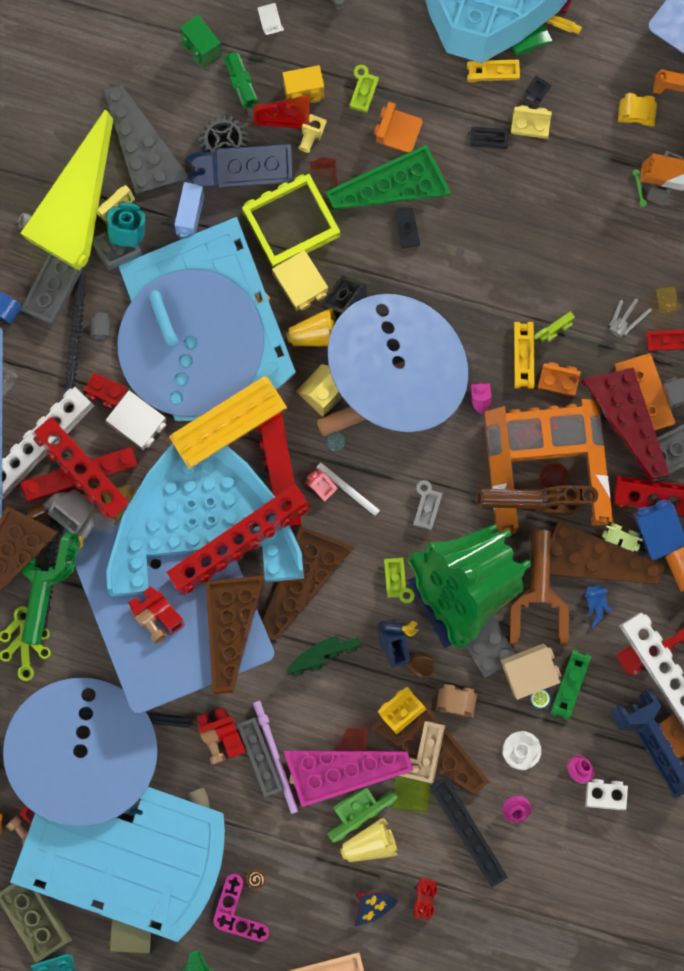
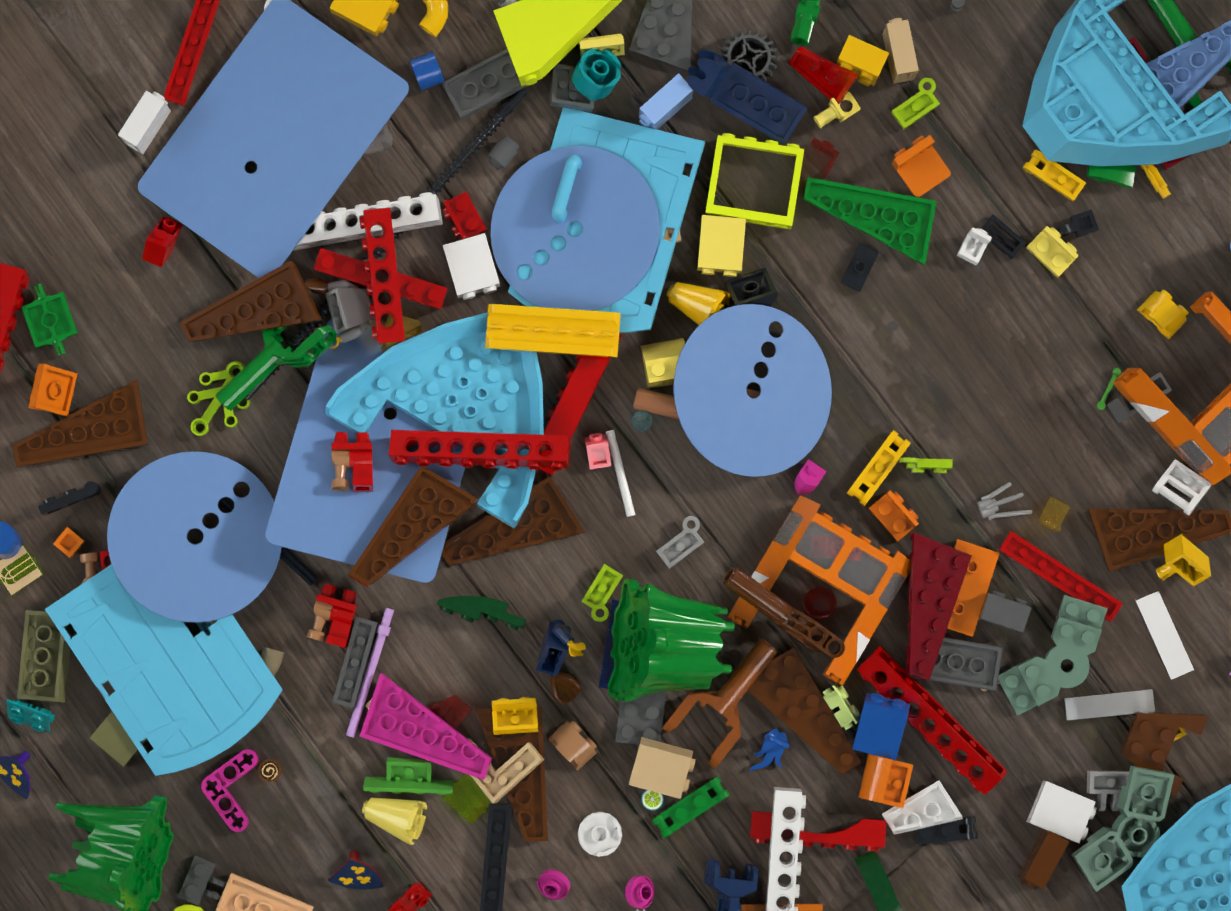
camera: 35 degrees right, 5 degrees up
(332, 65) = (901, 51): none -> tan brick
(475, 156) = (974, 245): none -> white bracket

